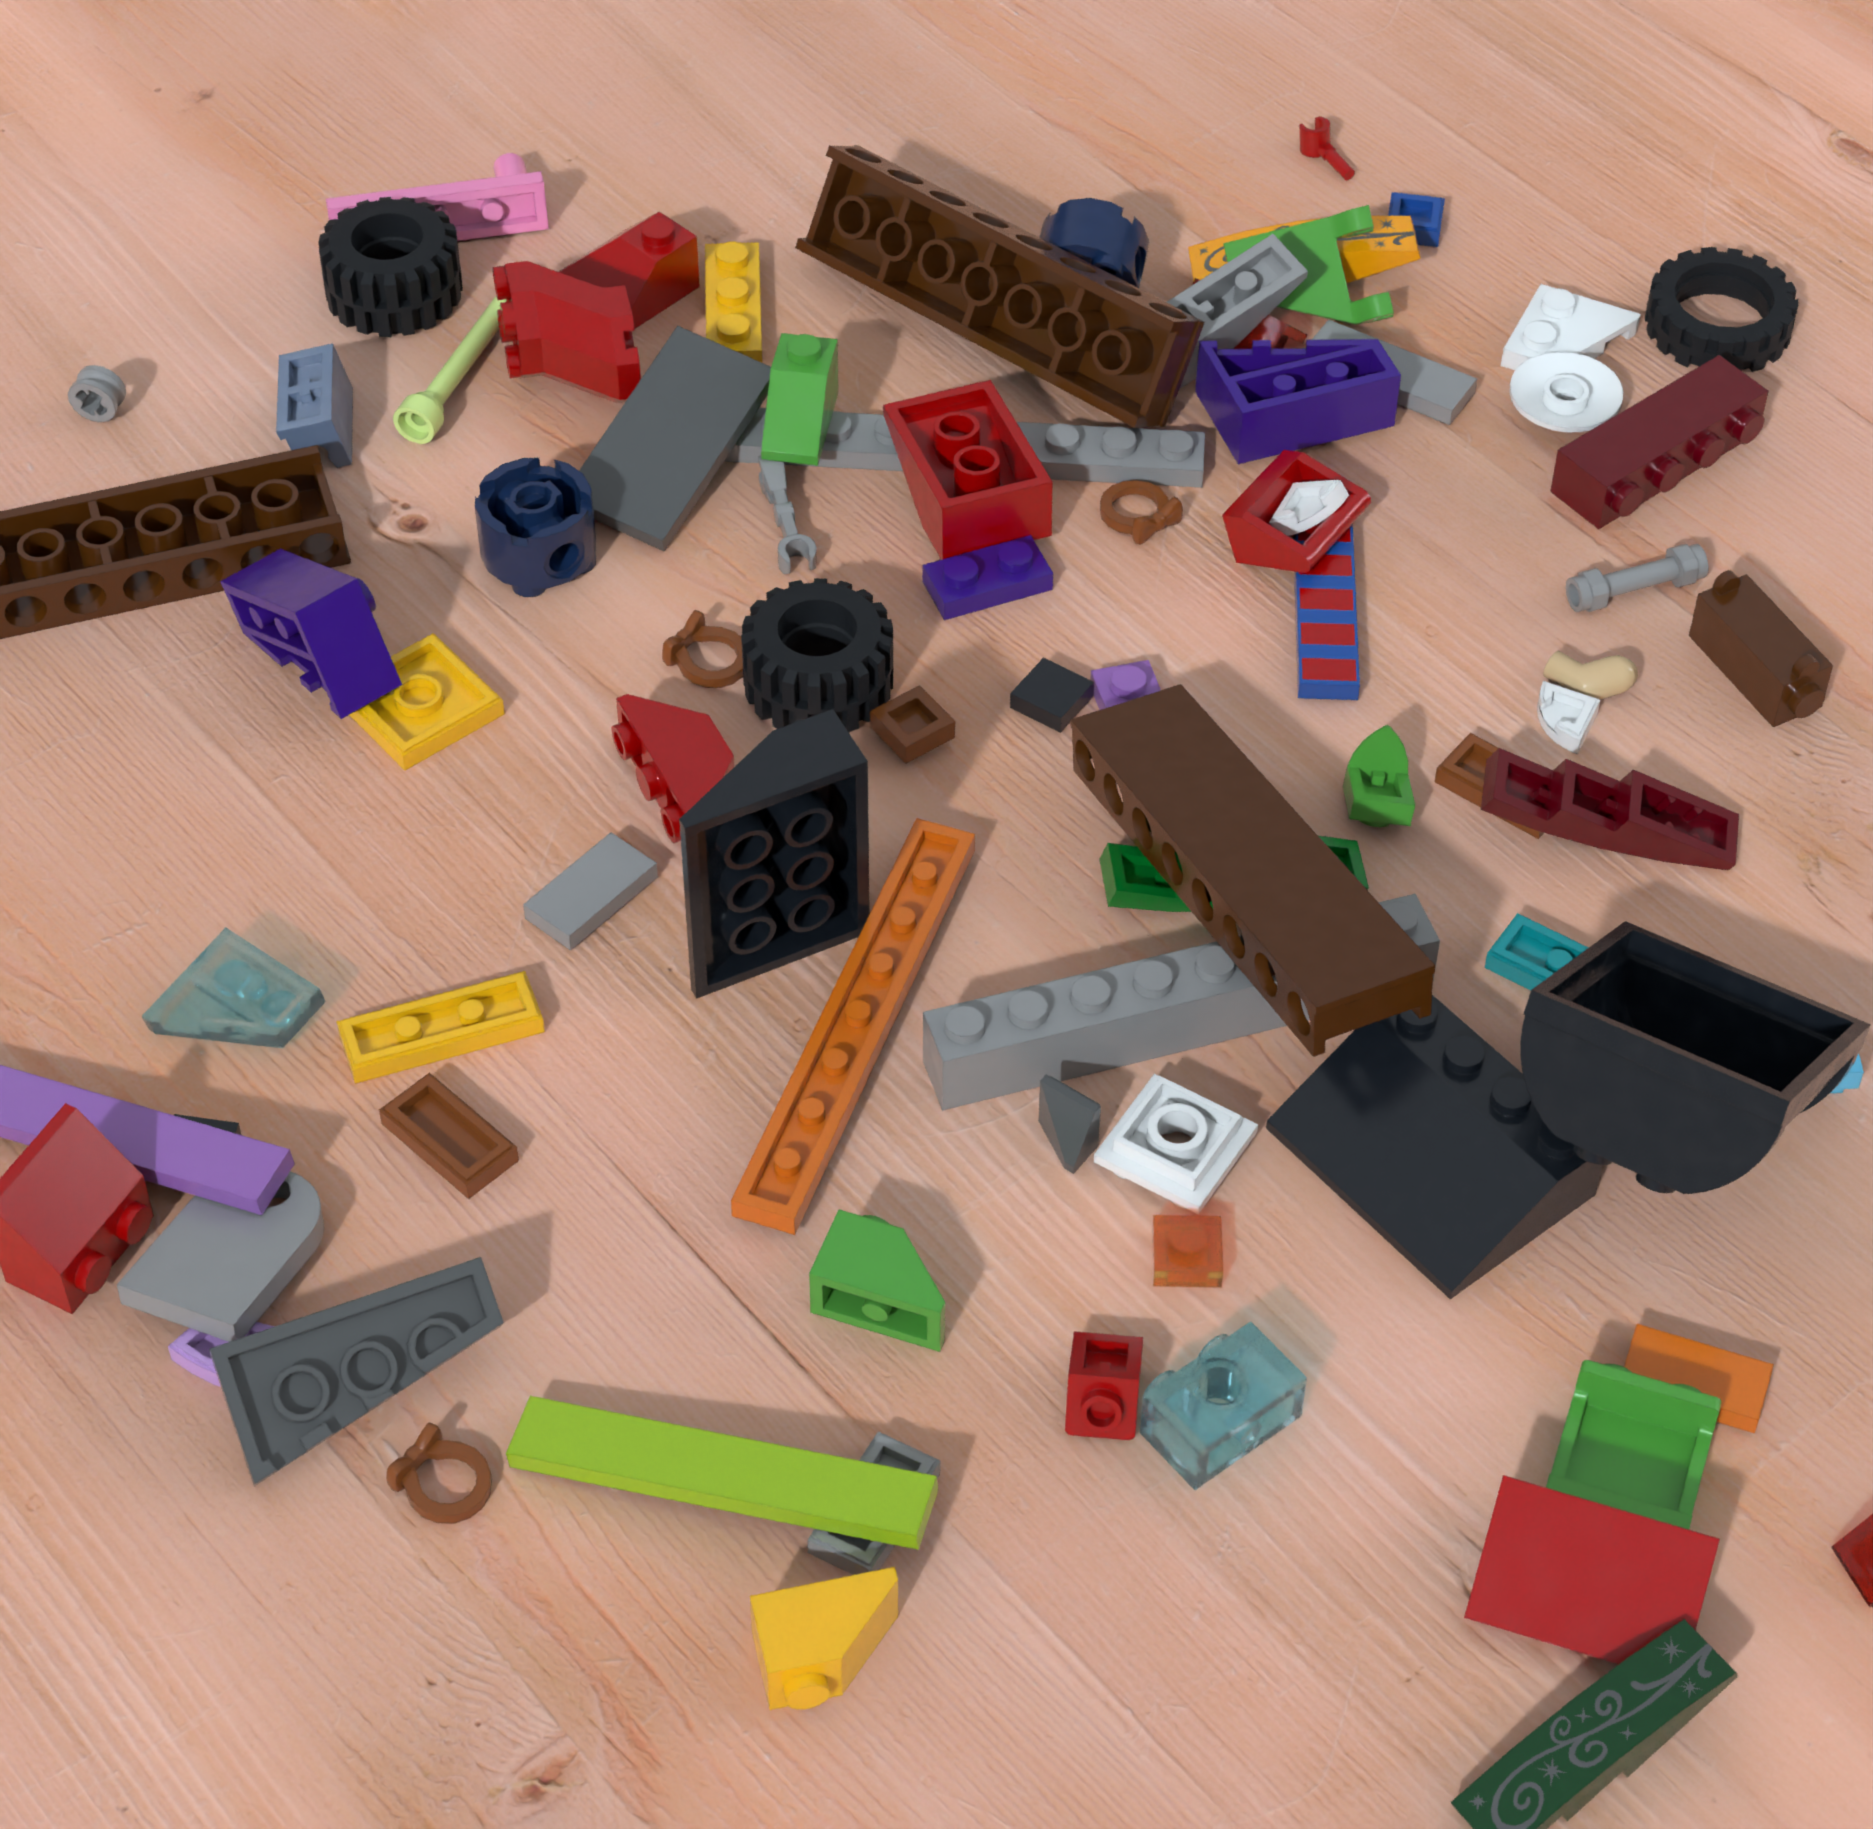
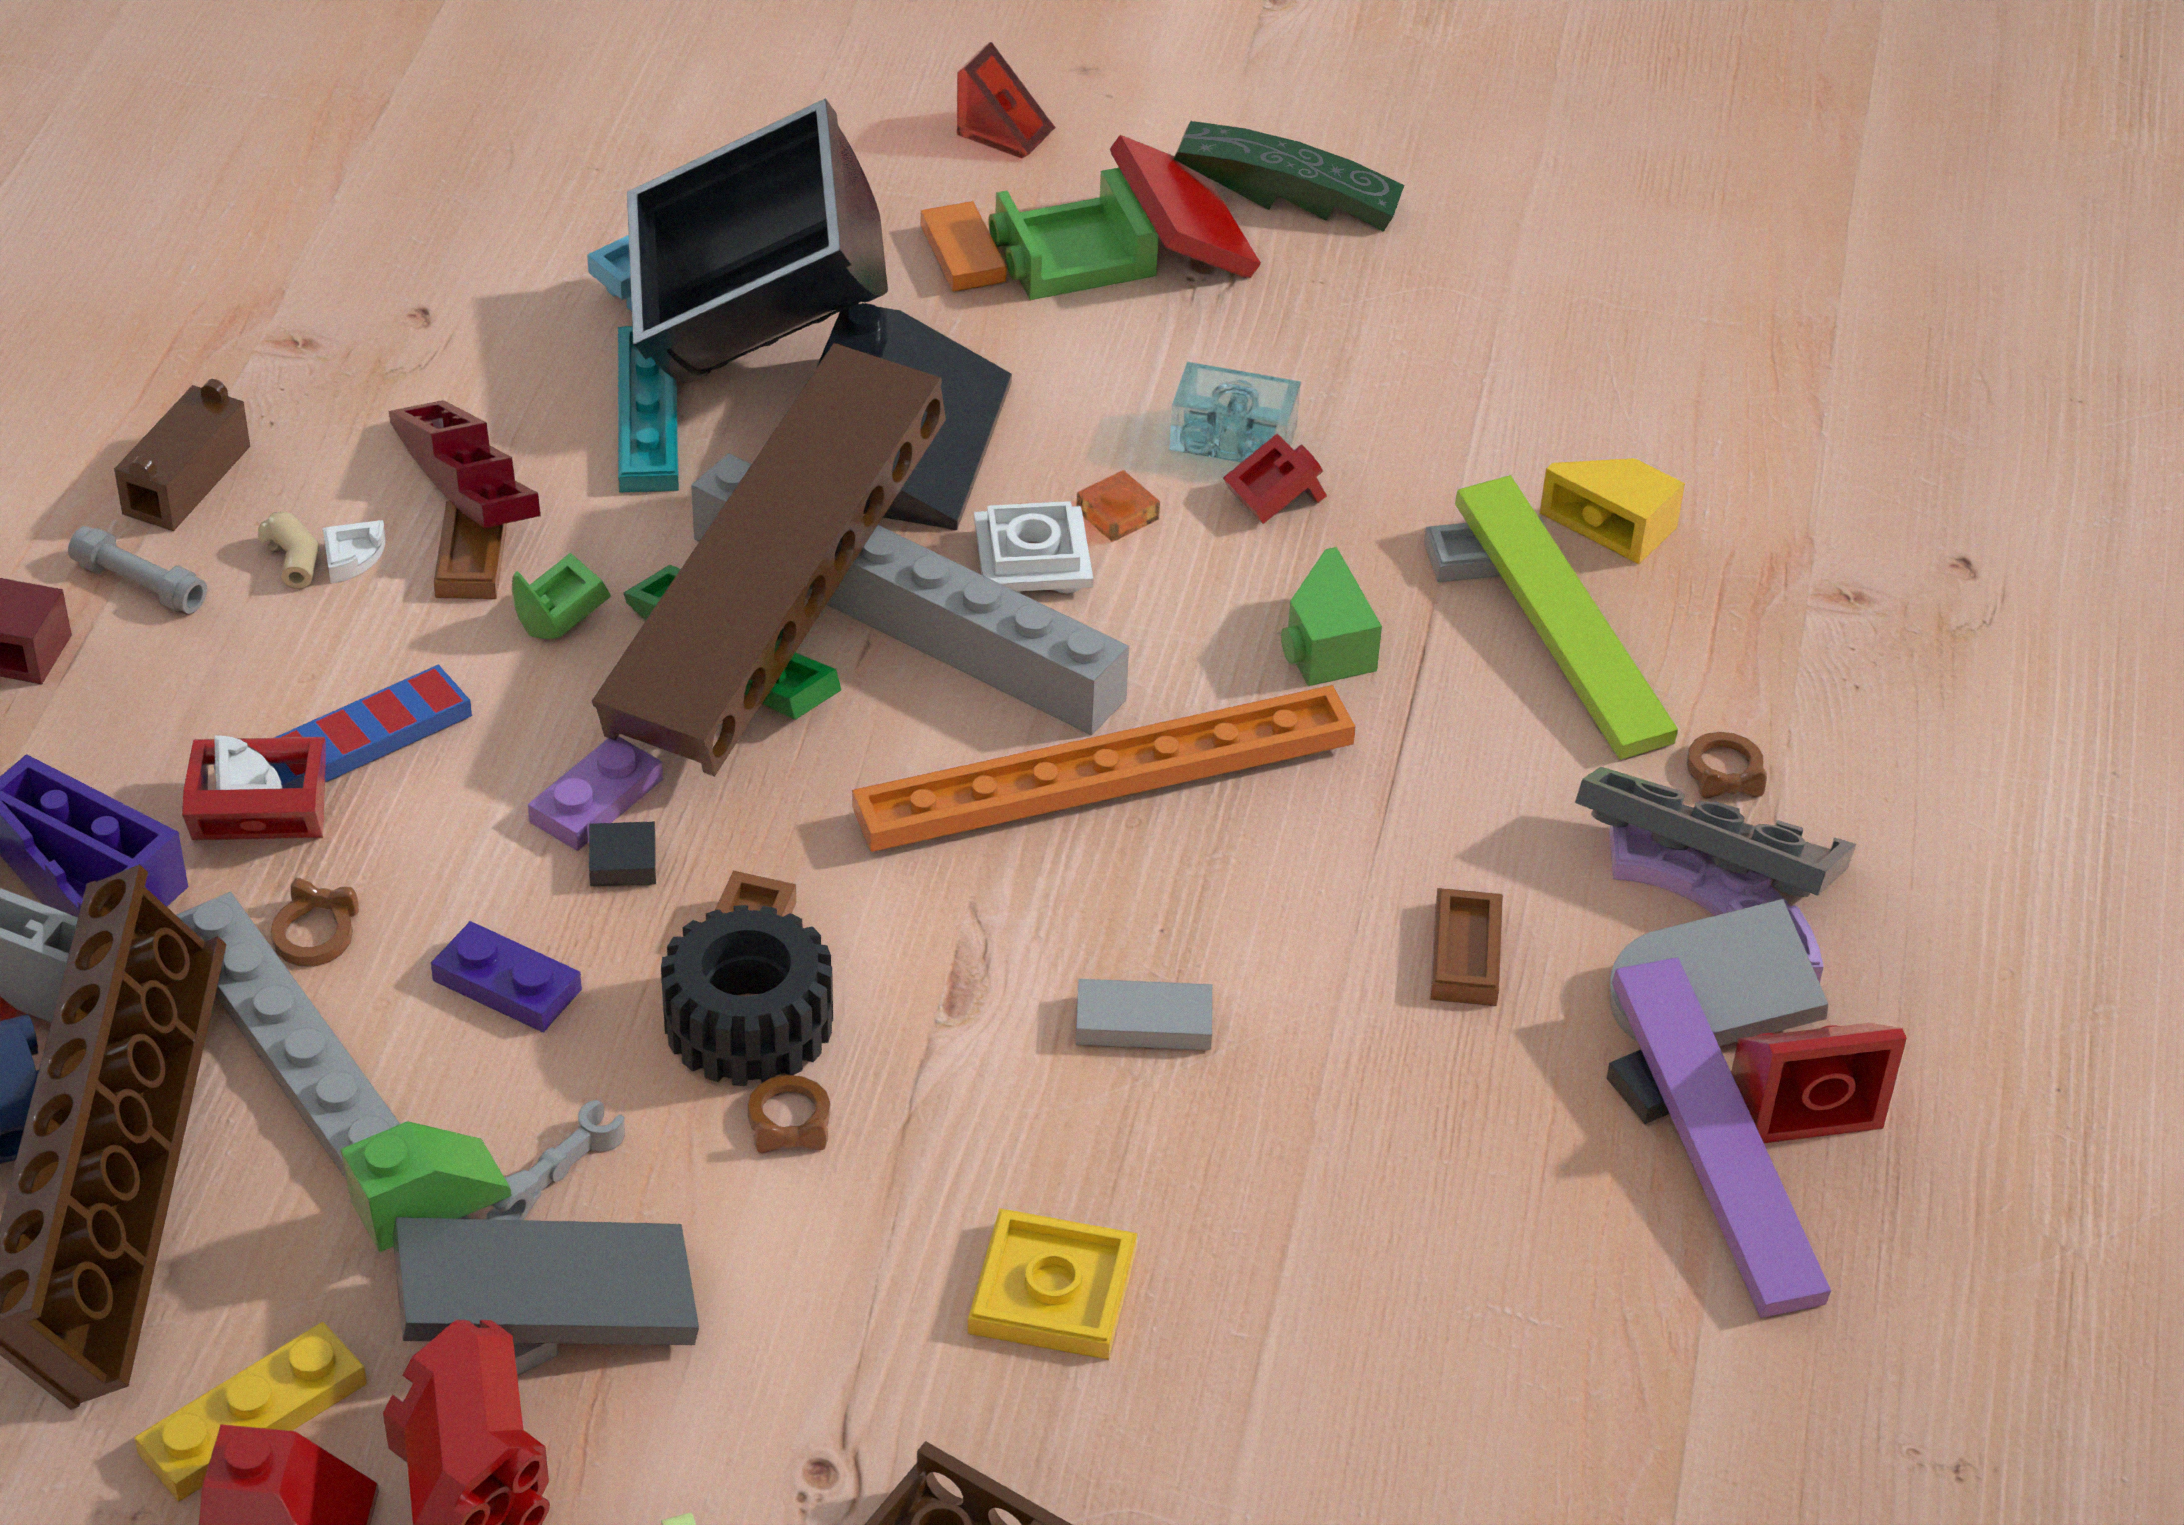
camera: 130 degrees left, 5 degrees down
(235, 997) = (1502, 1156): clear light blue wing -> none
(318, 623) = (1072, 1375): dark purple wedge -> none
(440, 1027) = (1377, 1020): yellow tile -> none
(536, 525) = (770, 1303): dark blue brick -> none
(674, 754) = (965, 1014): red slope -> none
(777, 855) = (1069, 788): black slope -> none
(970, 469) = (401, 1013): red slope -> none
(1069, 1122) = (1083, 595): dark grey slope -> none

